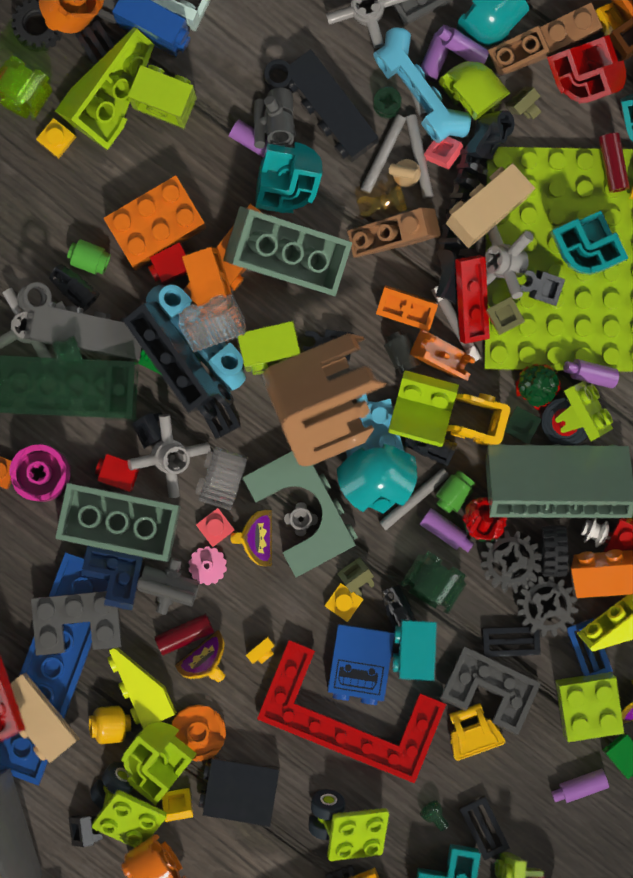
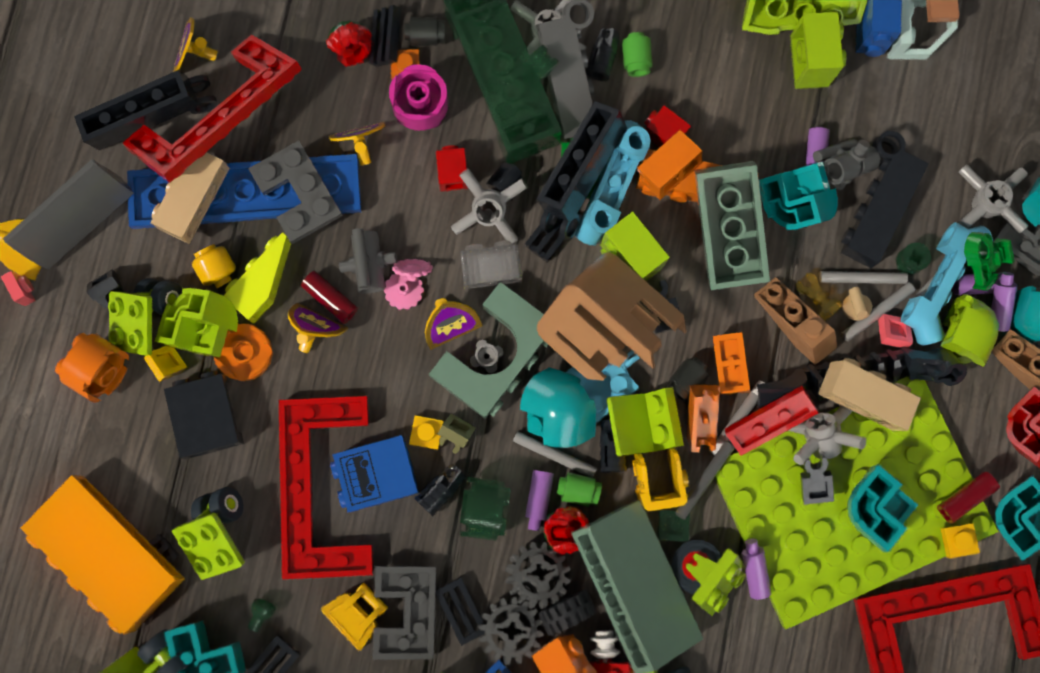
camera: 60 degrees right, 5 degrees down
(50, 544) = (359, 140): none -> yellow shield
(118, 522) = (405, 188): sand green brick -> none
(119, 569) = (360, 208): dark blue plate -> none
(155, 222) = (698, 97): orange brick -> none
(193, 549) = (412, 268): none -> bright pink piece
(212, 322) = (632, 183): clear brick -> none
(215, 527) = (442, 281): coral plate -> none
(261, 651) = (345, 375): yellow plate -> none
(416, 650) = (410, 520): teal brick -> none
(419, 45) = (986, 257): none -> green piece
(496, 379) = (705, 479): none -> dark grey bar
(505, 316) = (771, 458): olive tile -> none
(524, 103) = (978, 387): olive tile -> none
(538, 385) = (719, 523): dark green piece -> none

